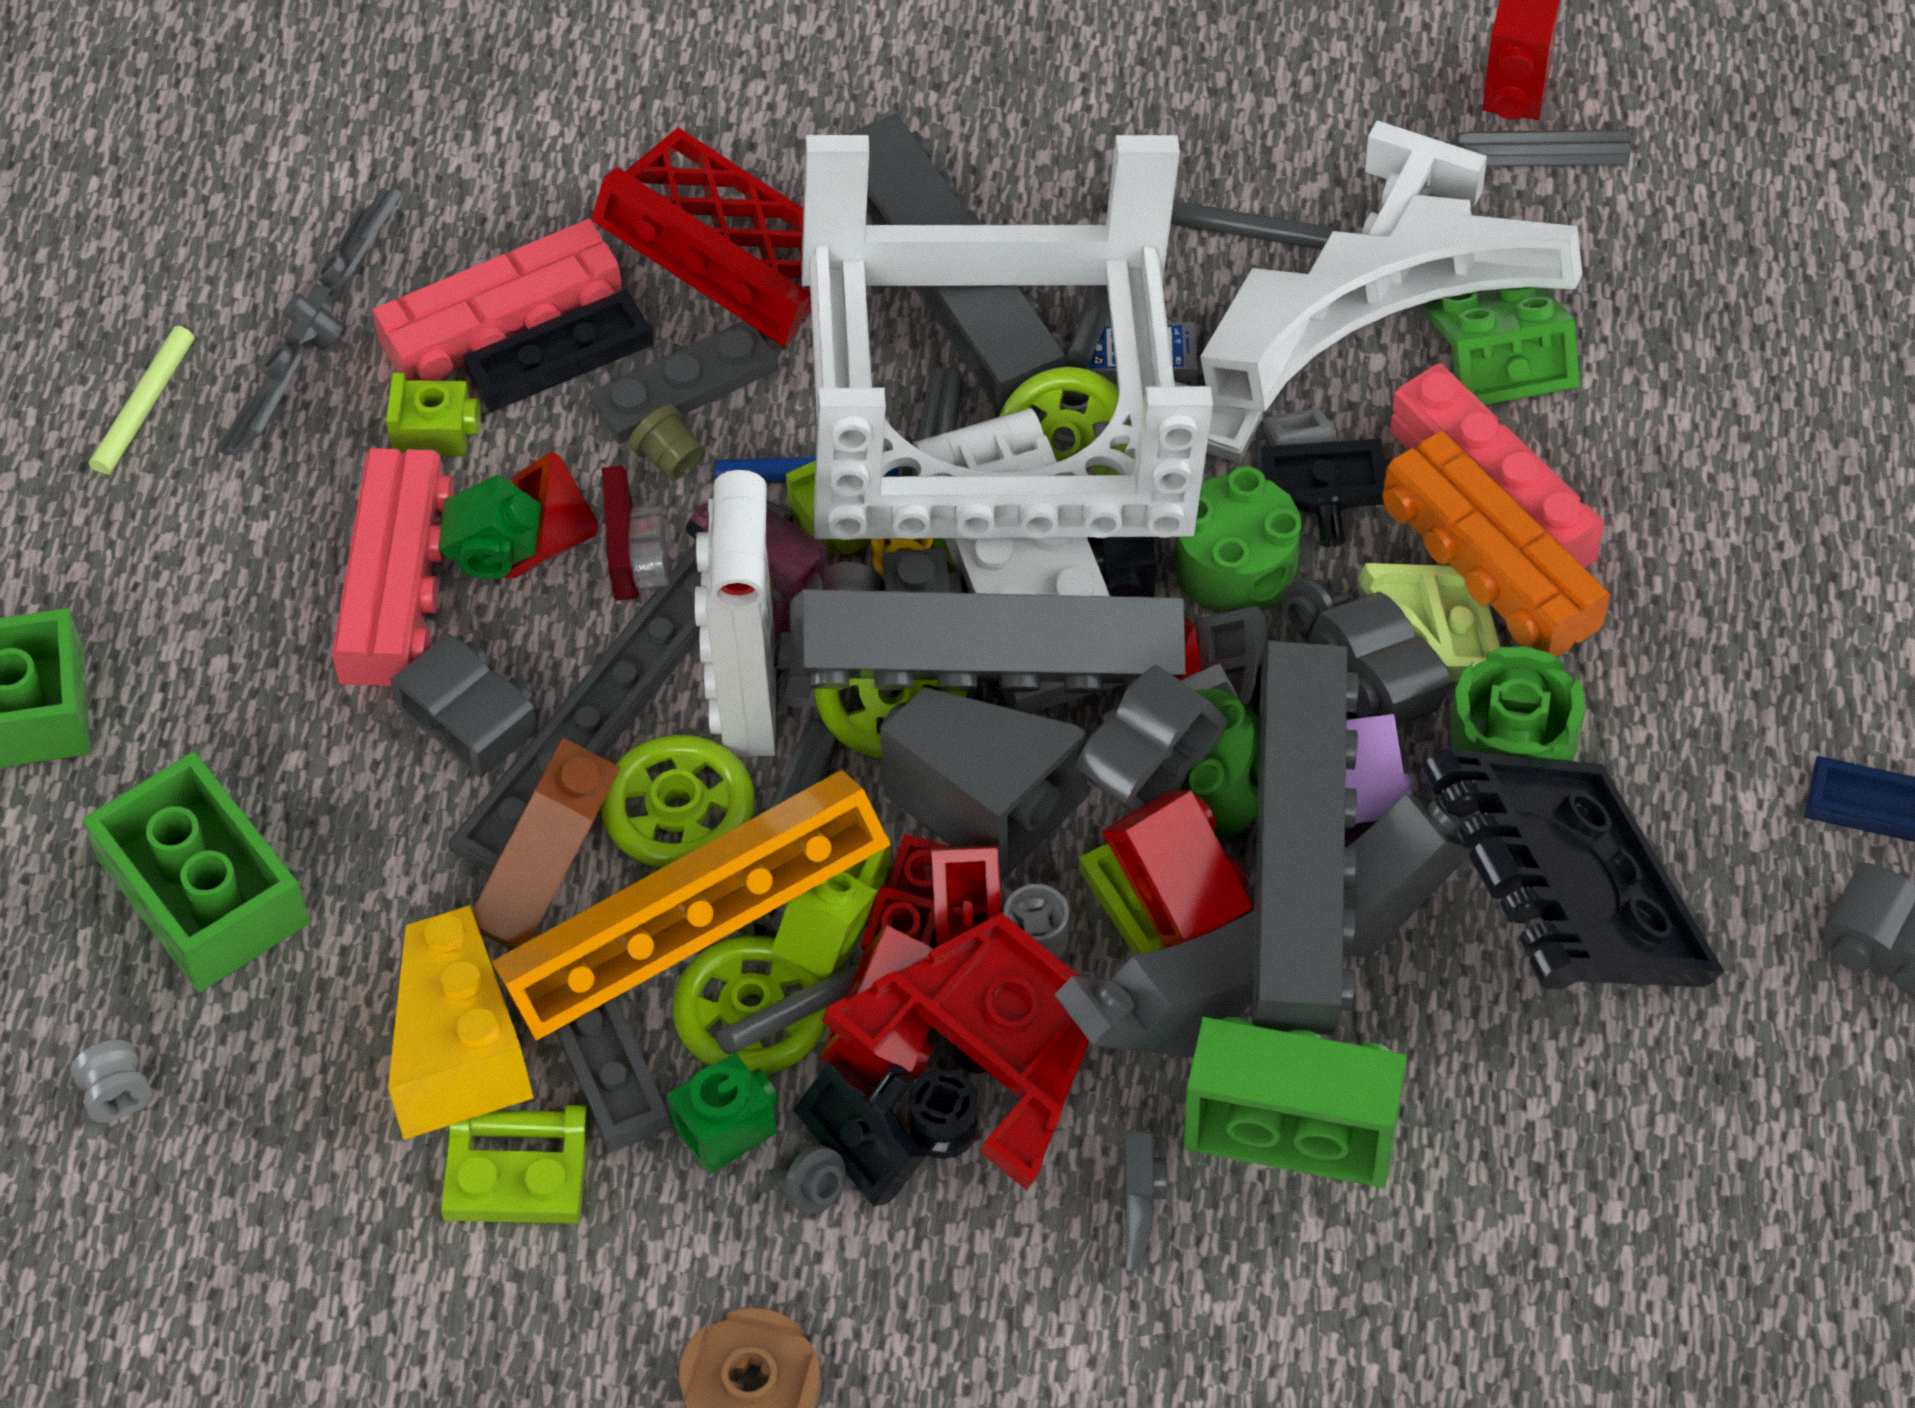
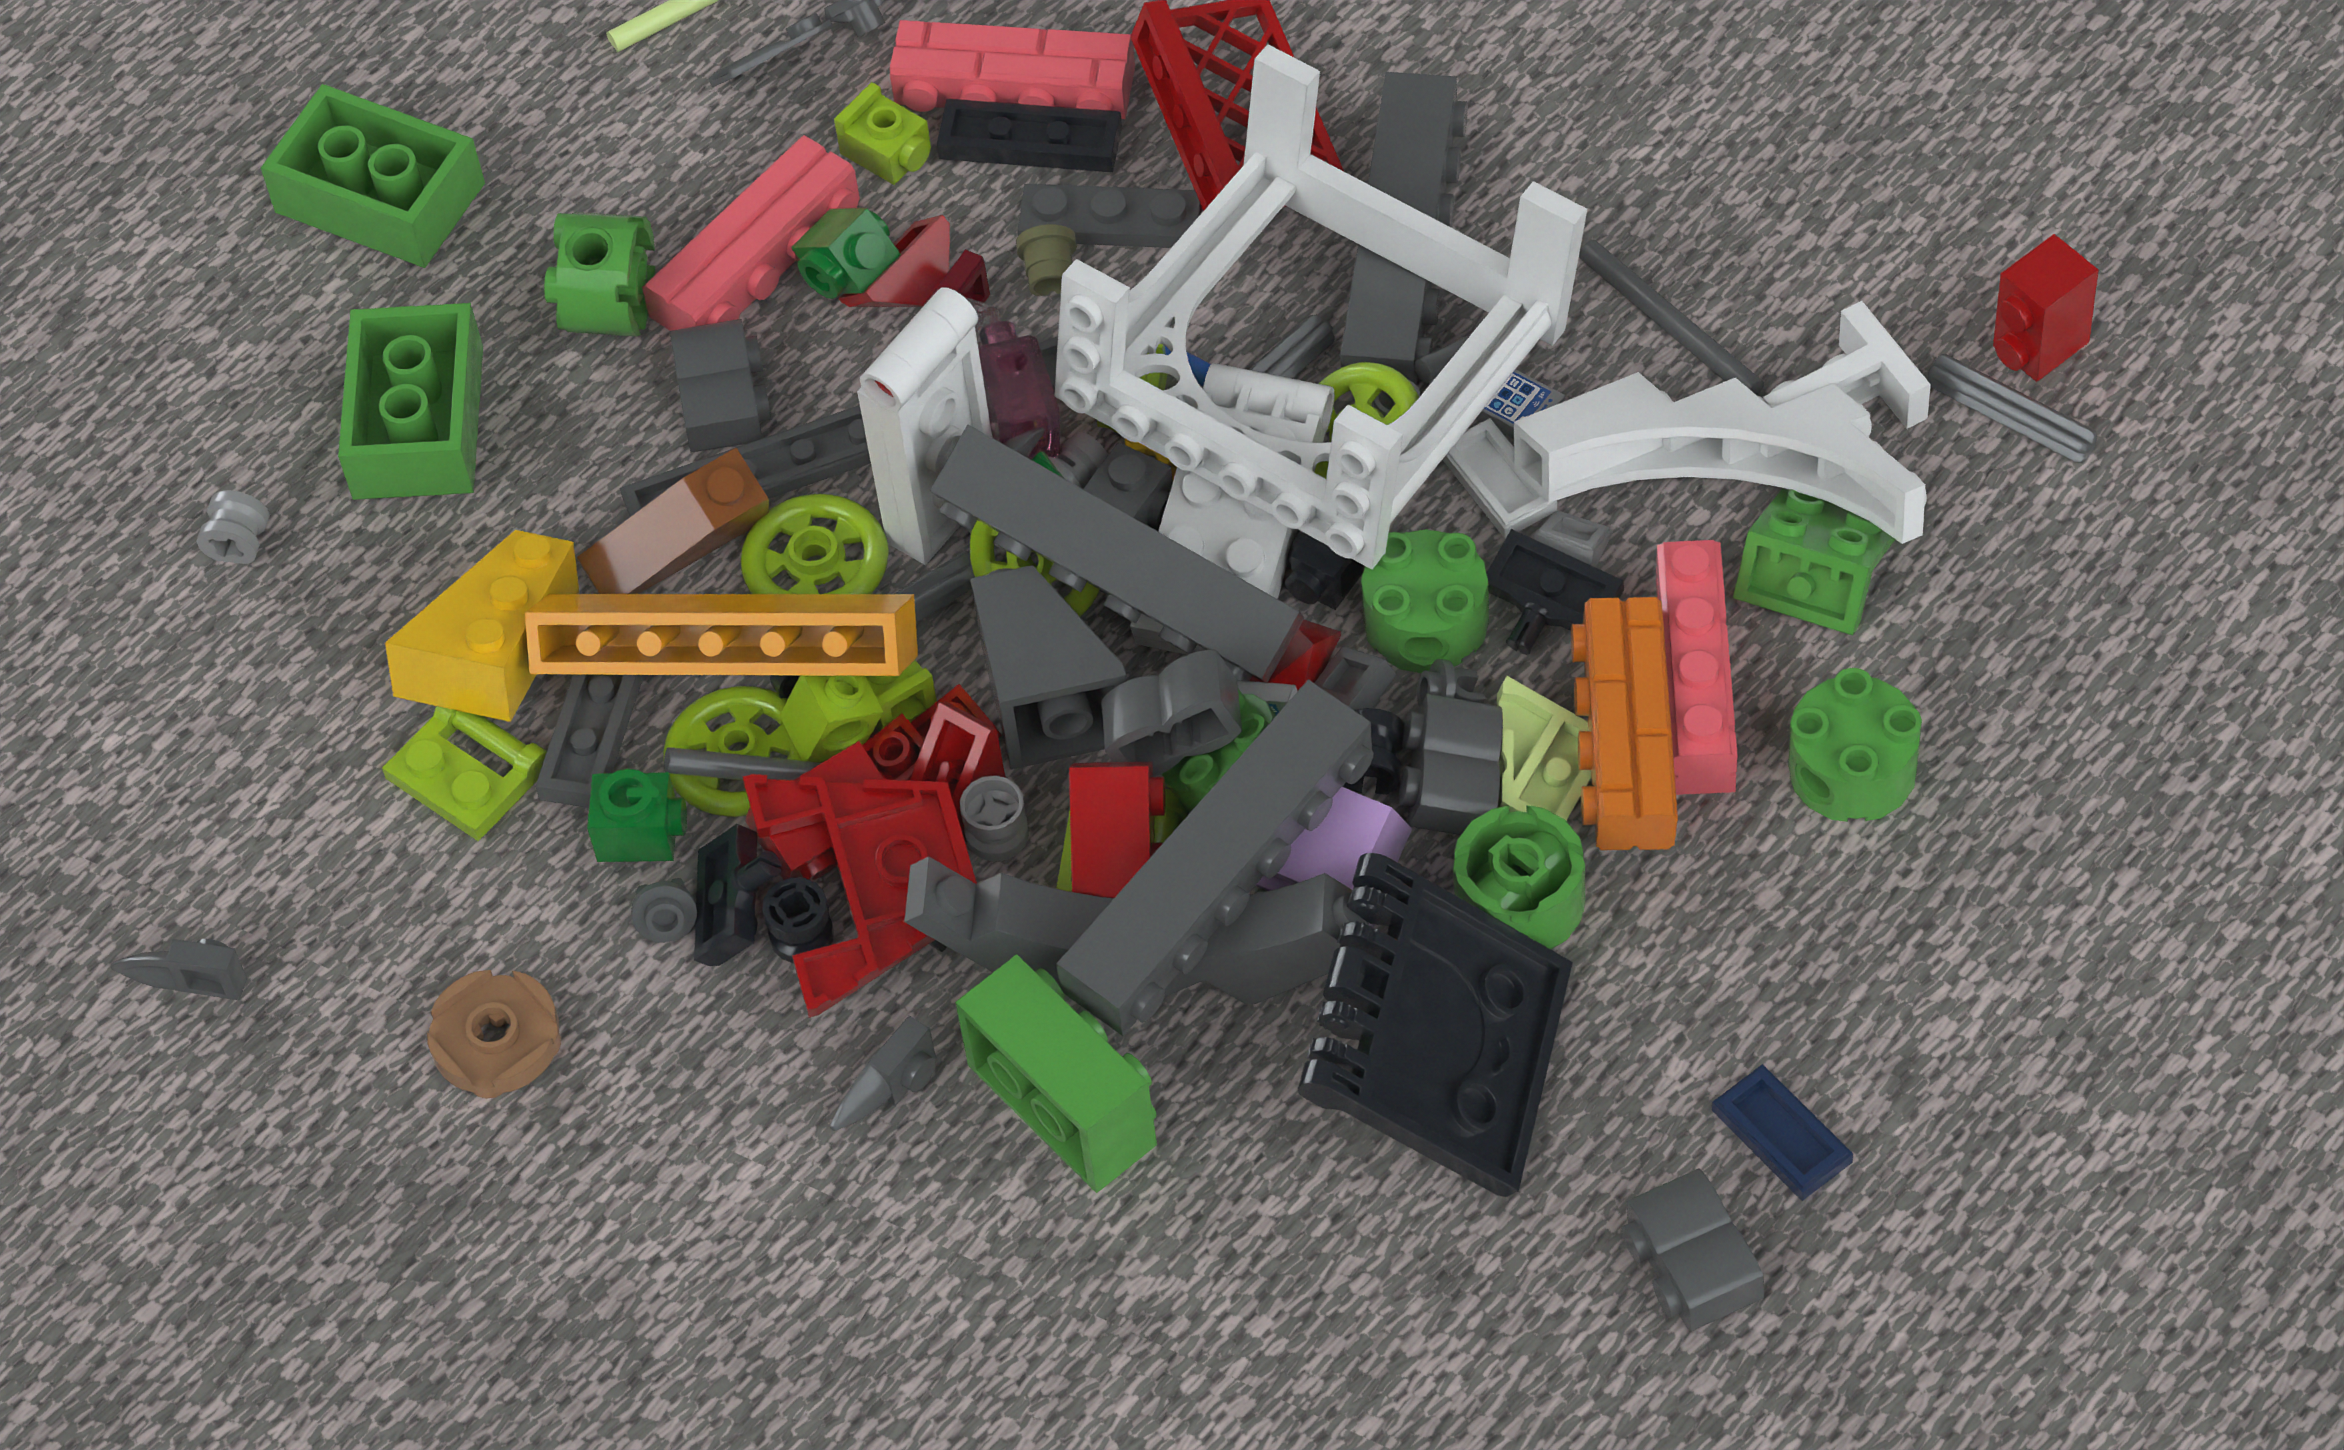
camera: 40 degrees right, 0 degrees up
(286, 663) = (600, 273): none -> bright green brick
(1673, 467) = (1854, 747): none -> bright green brick

